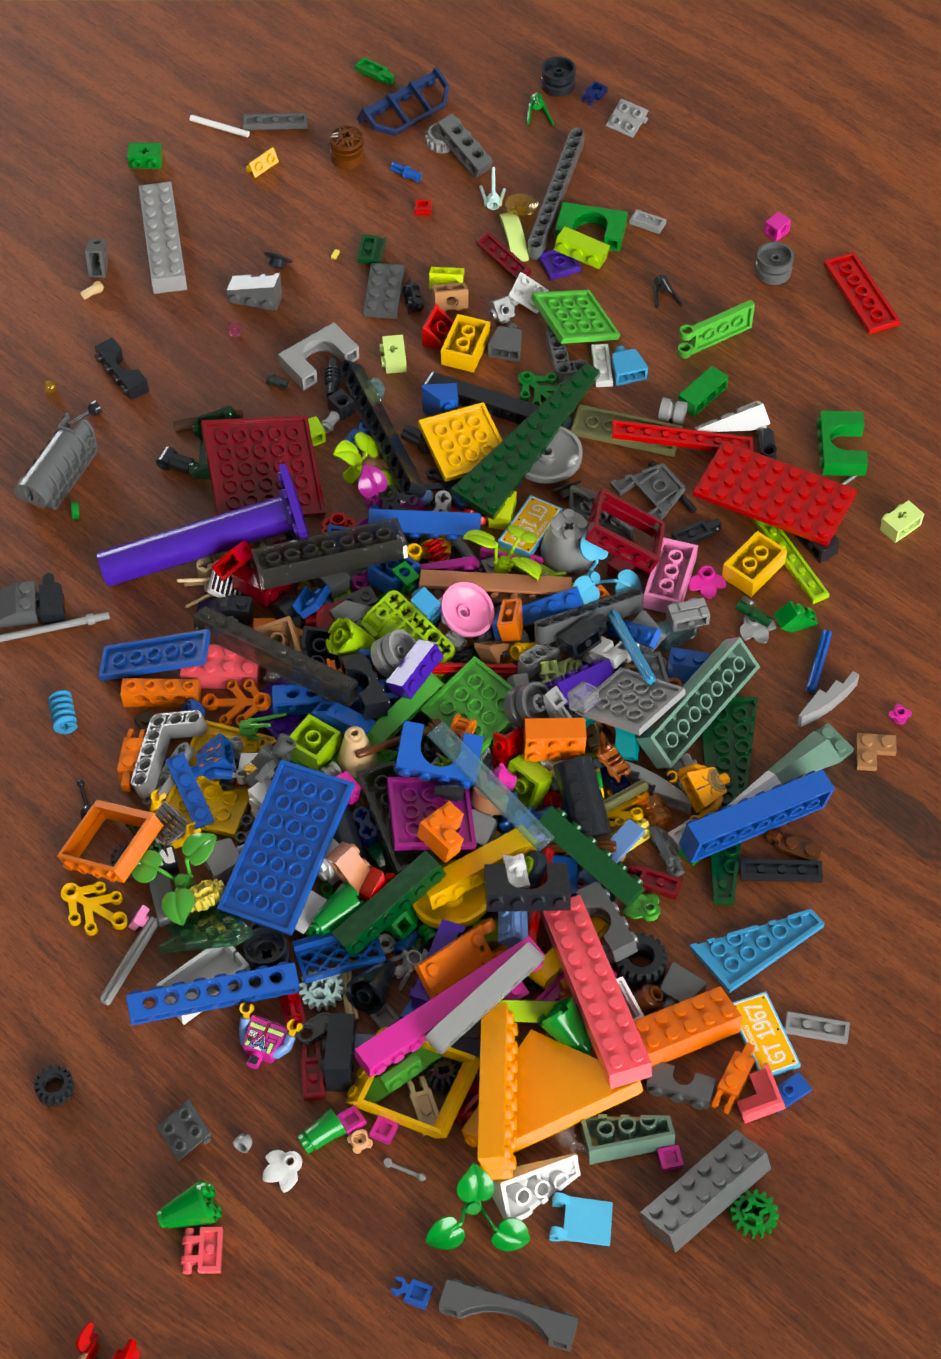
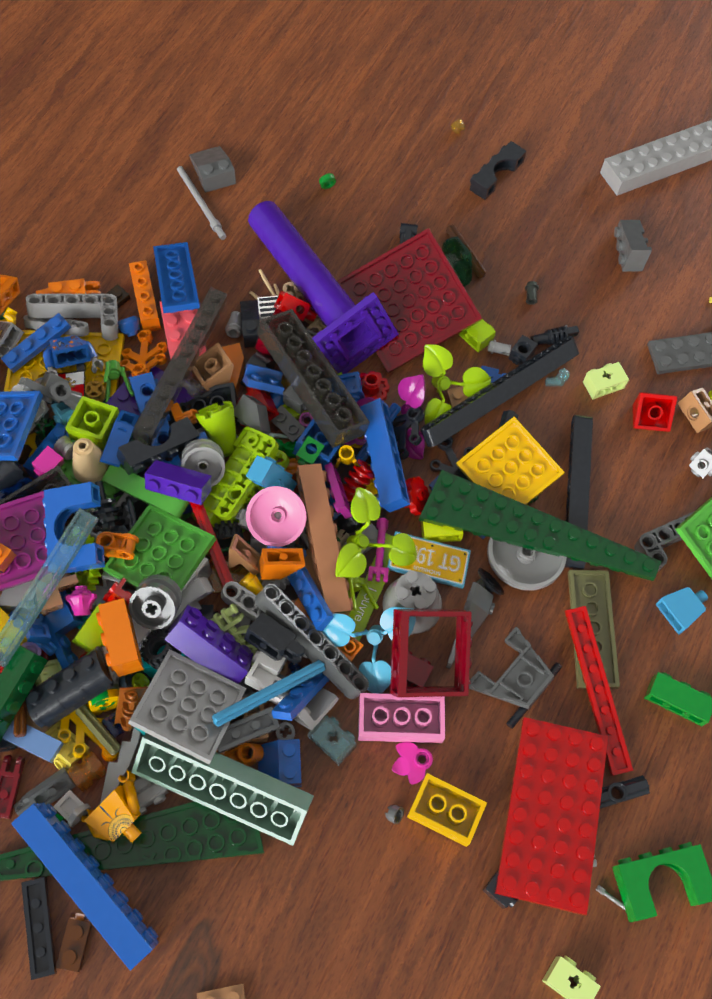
camera: 70 degrees right, 10 degrees up
(51, 601) = (225, 191): black hinge -> none
(58, 465) = (364, 150): dark grey piece -> none
(62, 712) = (109, 230): dark azure piece -> none
(80, 783) = (44, 266): black hinge -> none
(93, 409) = (446, 163): black hinge -> none
(96, 288) = (581, 126): tan arm -> none
(97, 251) = (617, 115): dark grey torso -> none
(238, 329) = (579, 239): clear pink hinge -> none
(276, 260) = (679, 252): black piece -> none
(329, 339) = (565, 298): light grey arch -> none
(394, 741) = (125, 521): reddish brown piece -> none
(412, 297) = (695, 376): black hinge -> none
(427, 497) = (434, 452): medium blue plate -> none
(439, 398) = (557, 436): blue slope -> none
(442, 496) = (421, 469): light grey axle -> none
(452, 792) = (37, 552): black cone -> none
(465, 343) = (644, 439): yellow brick -> none
(506, 343) = (664, 480): dark grey torso -> none
(528, 379) = (615, 528): green plant -> none
(554, 704) = (156, 631): light grey slope -> none
(583, 698) = (172, 653): clear brick -> none
(601, 361) = (673, 582): white tile -> none
(672, 411) = (636, 671): light grey wheel -> none
(687, 614) = (344, 747): light grey brick -> none
(697, 532) = (475, 734): black hinge -> none
(748, 417) = (656, 756): white wedge -> none
(754, 613) = (373, 823): dark green pin -> none
(755, 630) = (361, 834): light grey plate -> none
(795, 563) = (466, 862): lime tile -> none
(795, 617) = (387, 875): green slope -> none
(814, 753) = (205, 938): sand green plate -> none
(818, 661) = (336, 916): blue axle -> none
(825, 702) = (273, 932): light grey slope -> none

